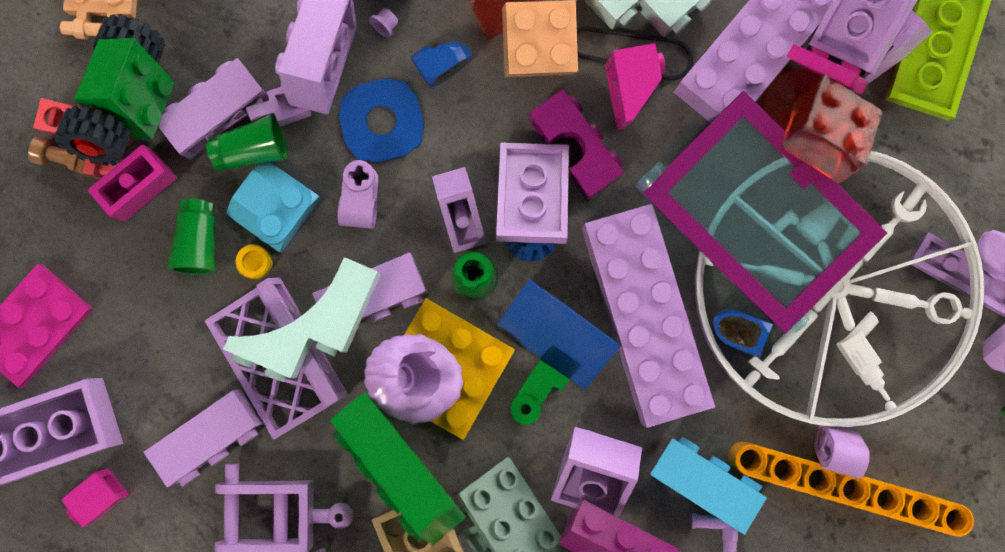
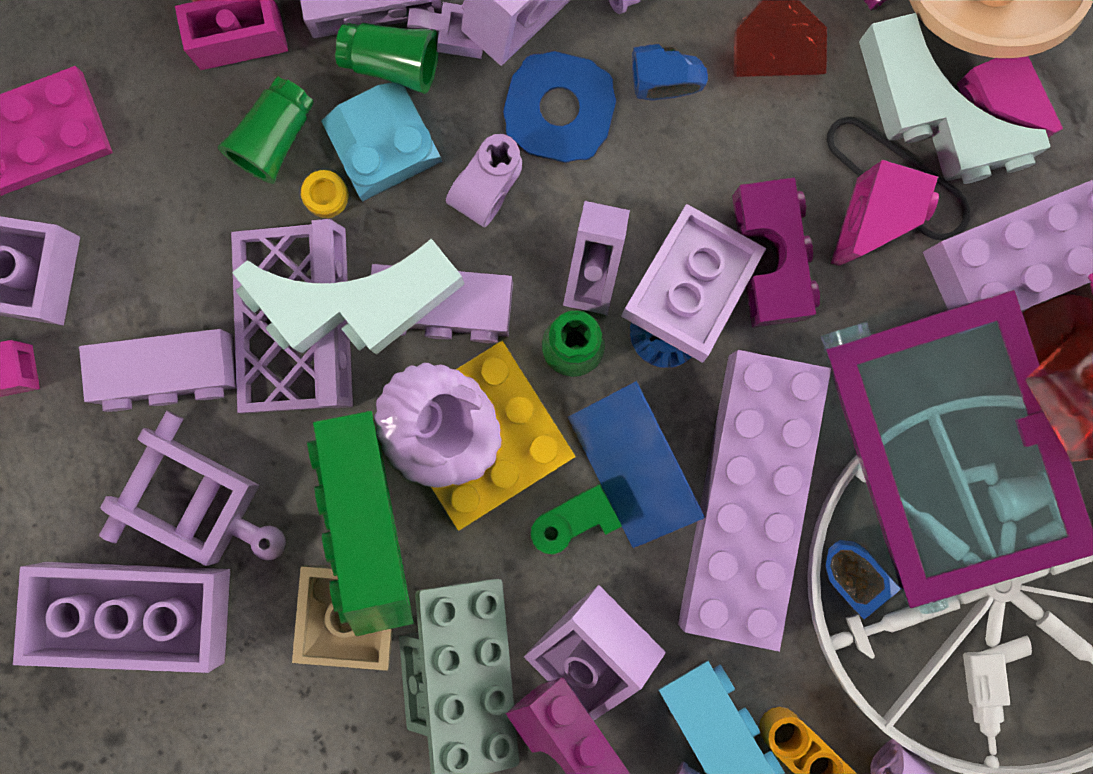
camera: 30 degrees right, 0 degrees up
(540, 38) = (798, 104): light nougat brick -> none

